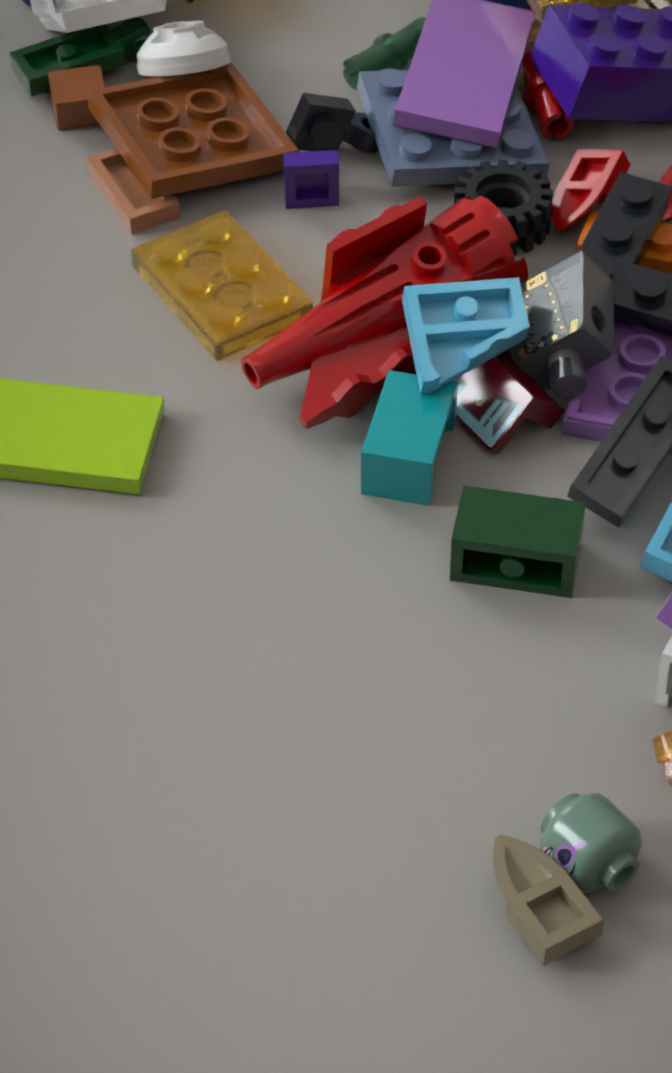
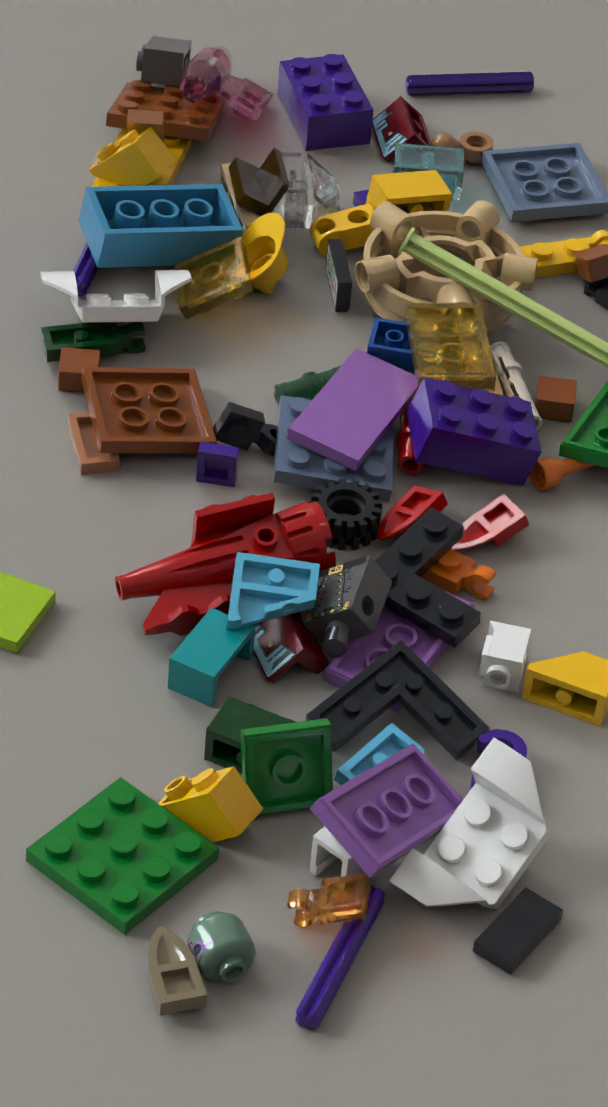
camera: 10 degrees right, 5 degrees down
(181, 50) = (161, 352): white piece -> none
(220, 284) = (126, 522): clear yellow plate -> none
(397, 744) = (122, 855): none -> green plate
(493, 643) = (212, 803): none -> yellow slope
(581, 565) = (288, 764): none -> green tile

